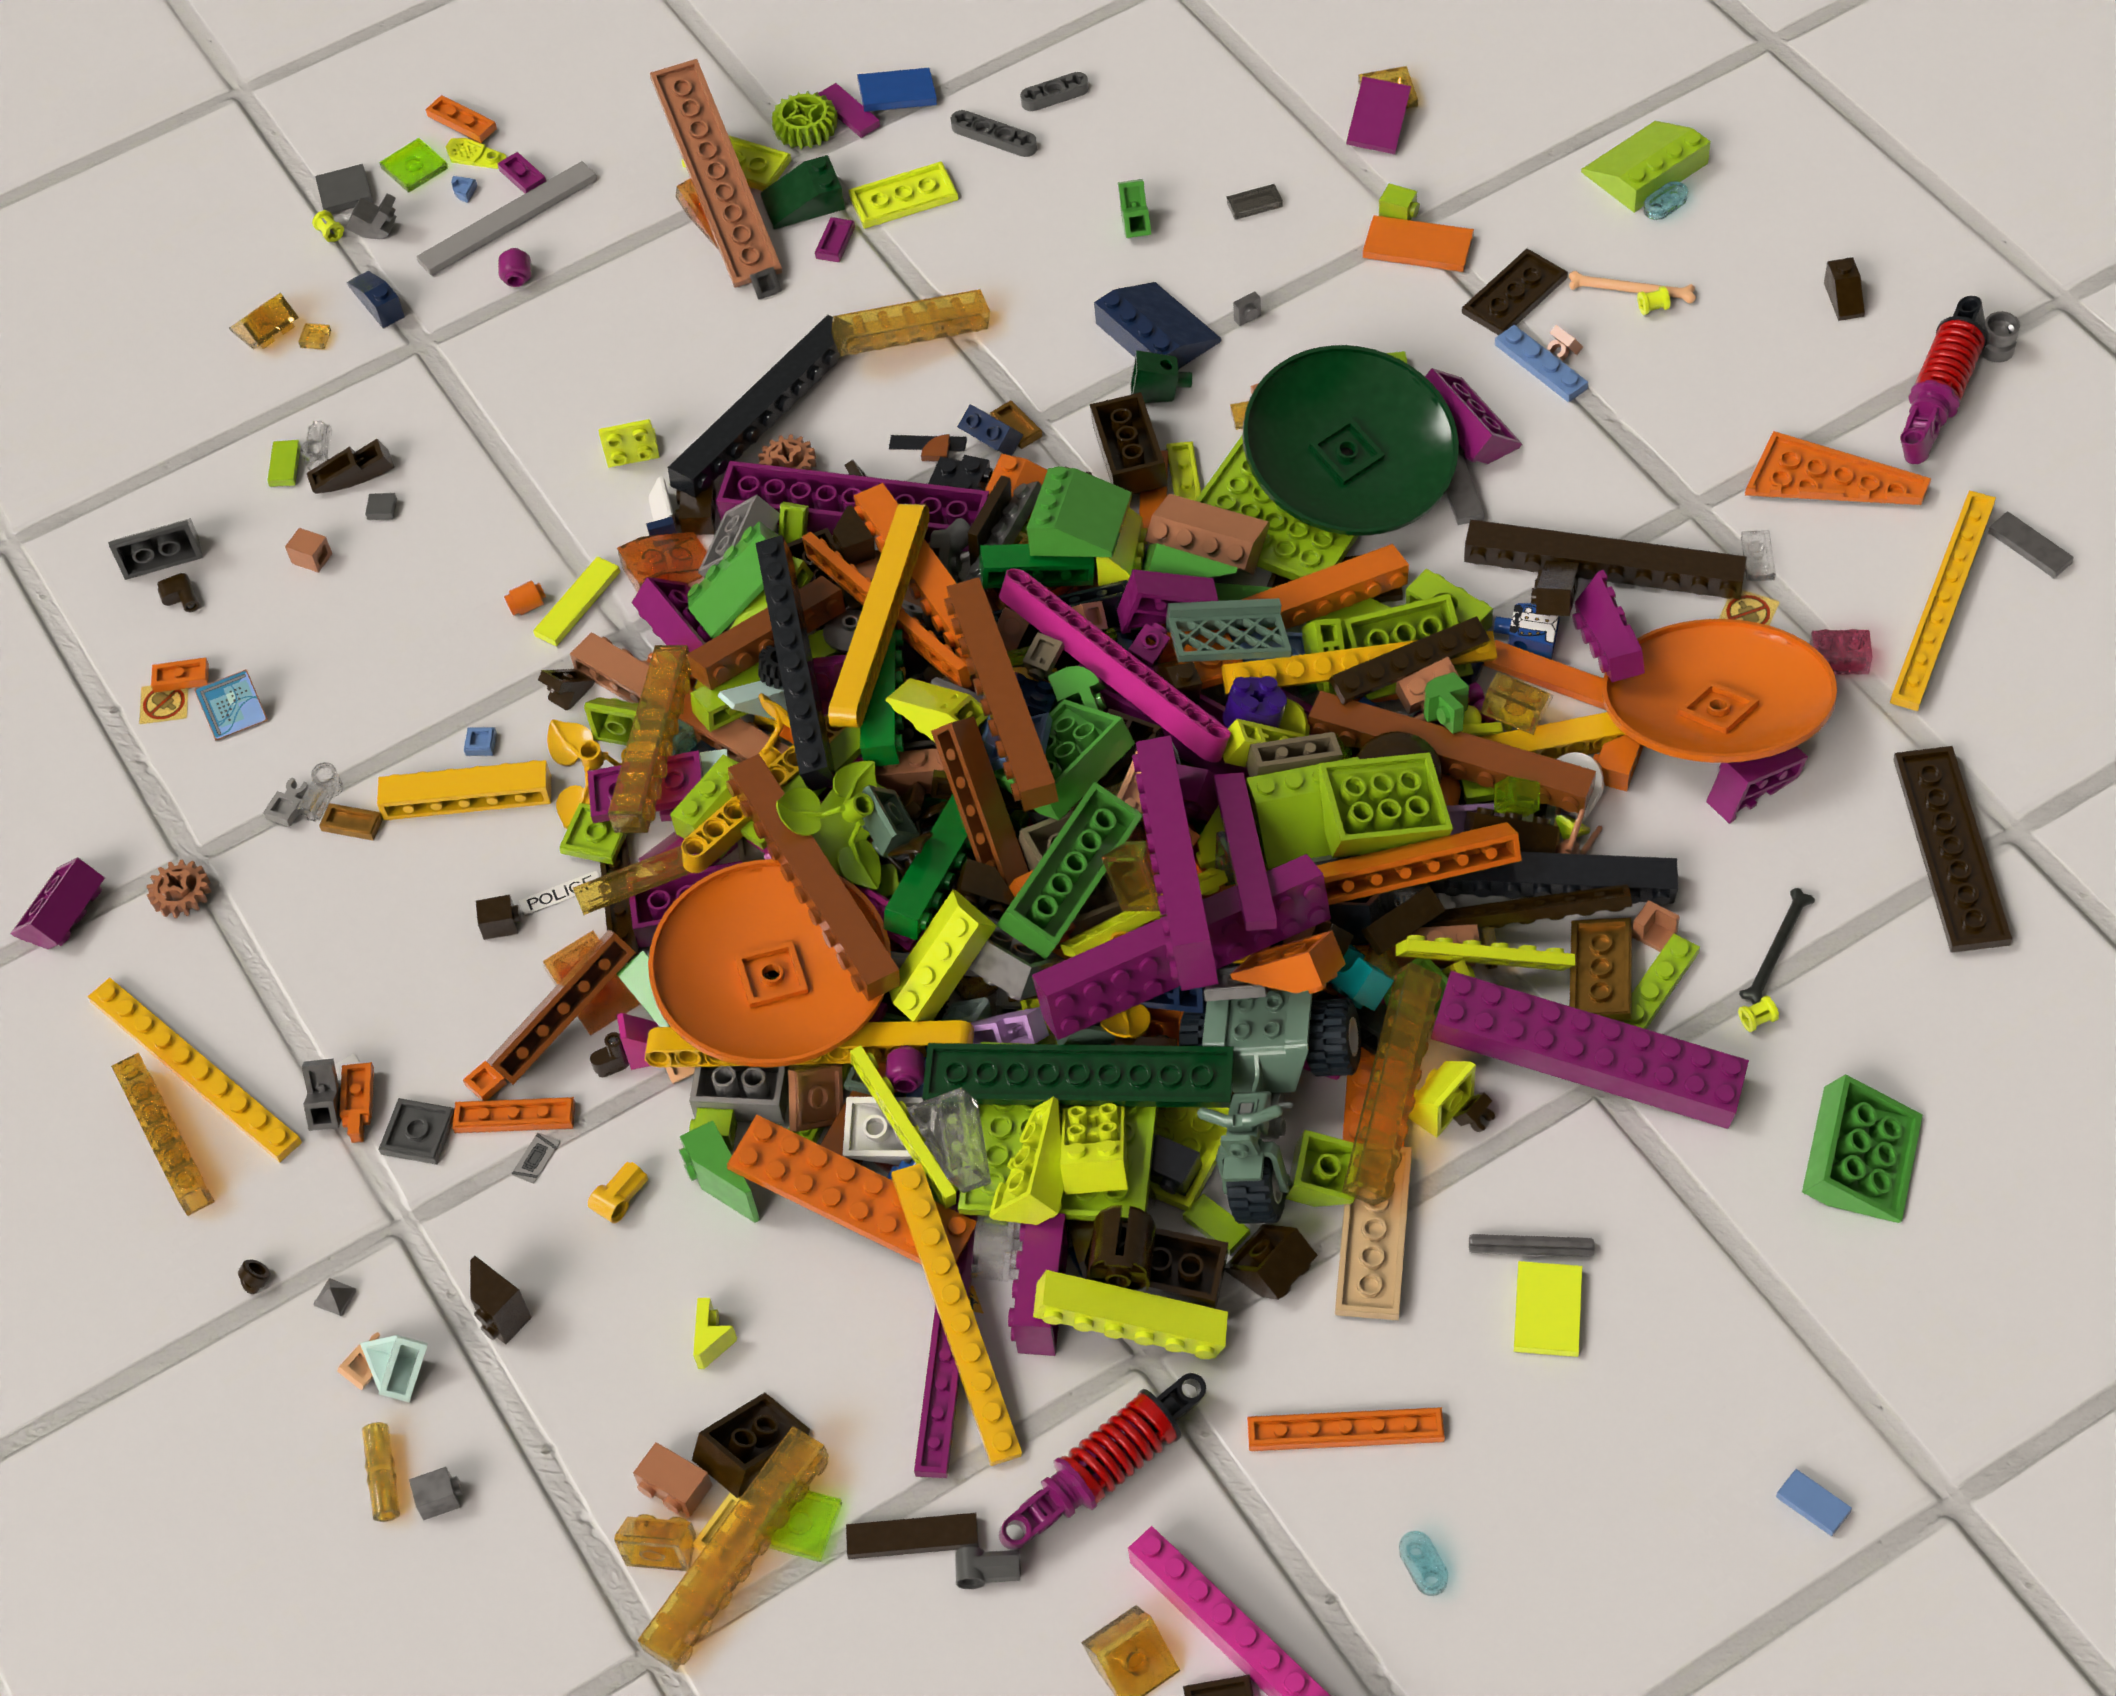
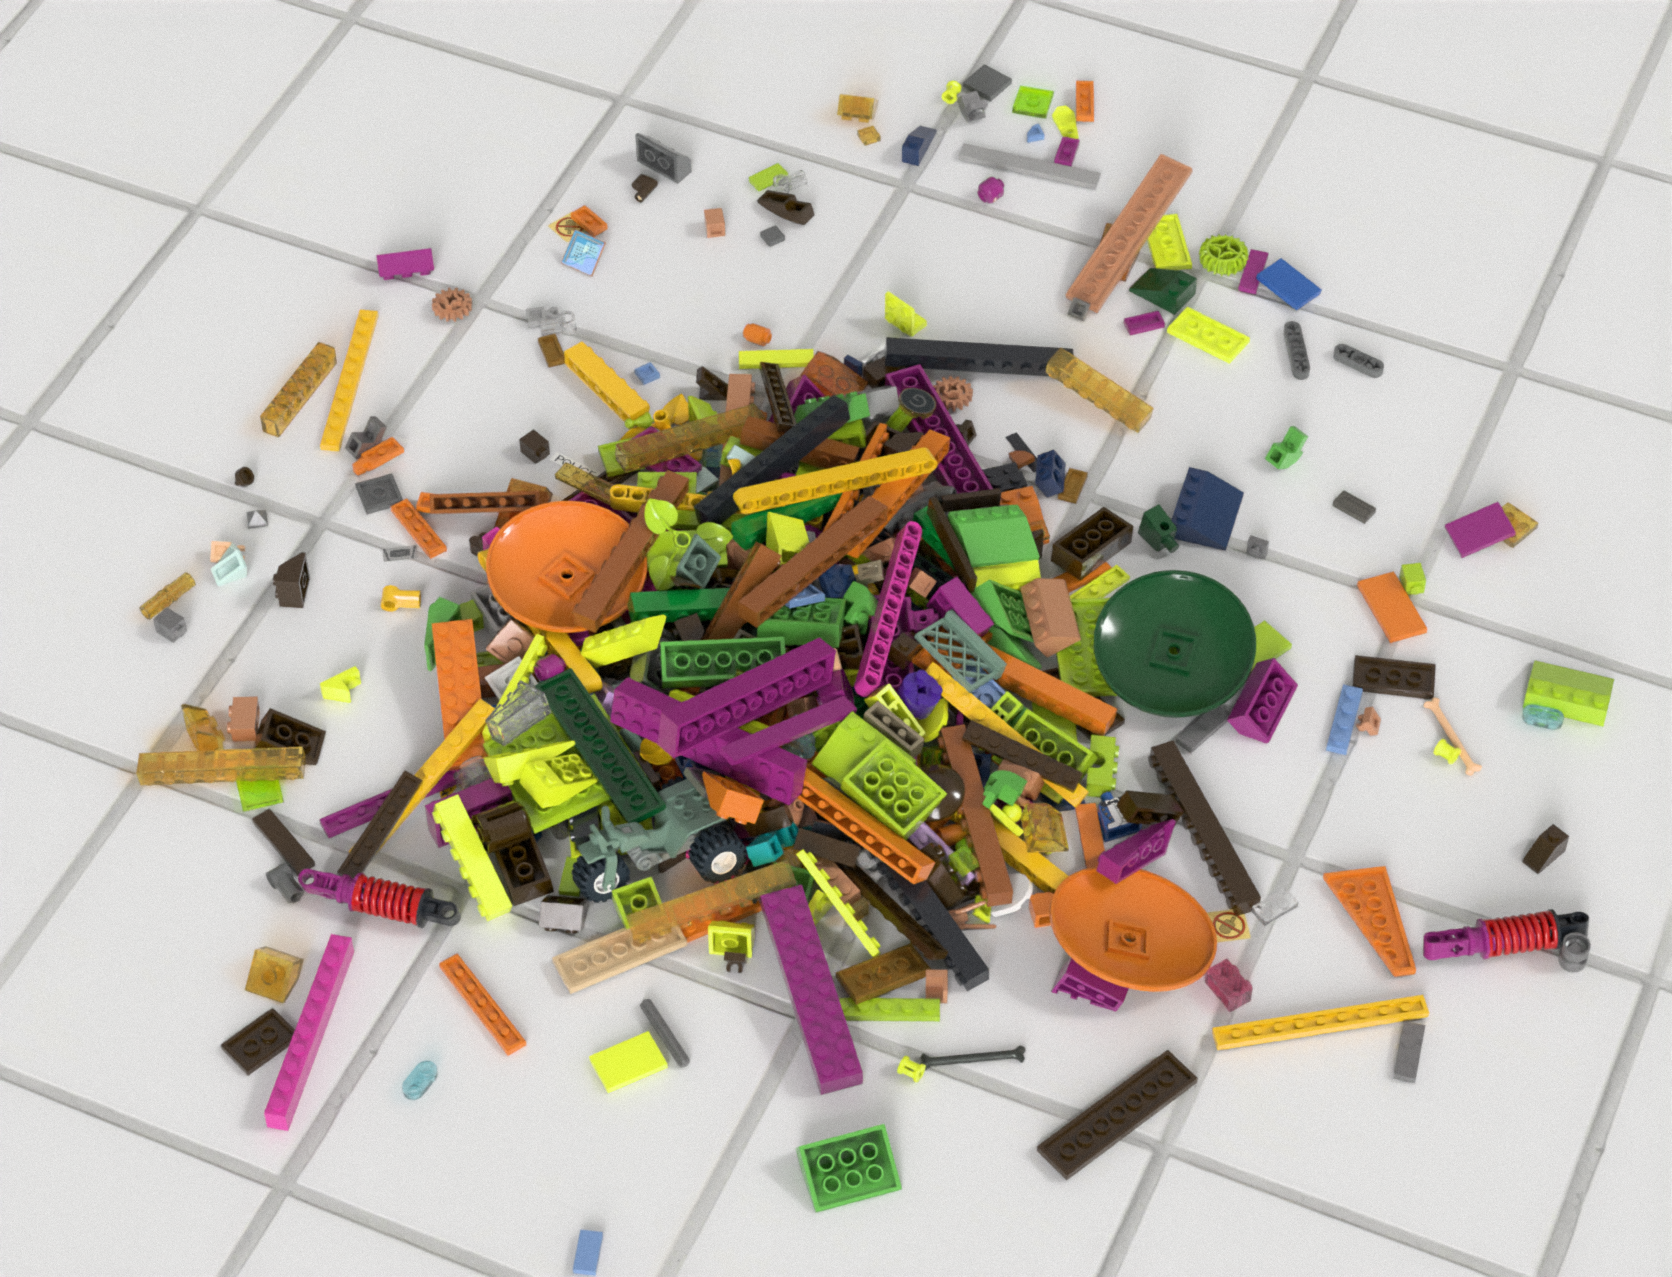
camera: 50 degrees right, 5 degrees down
(560, 779) = (642, 421): none -> lime piece
(664, 619) = (777, 396): none -> dark brown tile
(794, 490) = (916, 403): none -> tile
(996, 1399) = (381, 825): none -> dark brown plate
(1069, 553) = (951, 544): none -> dark brown tile

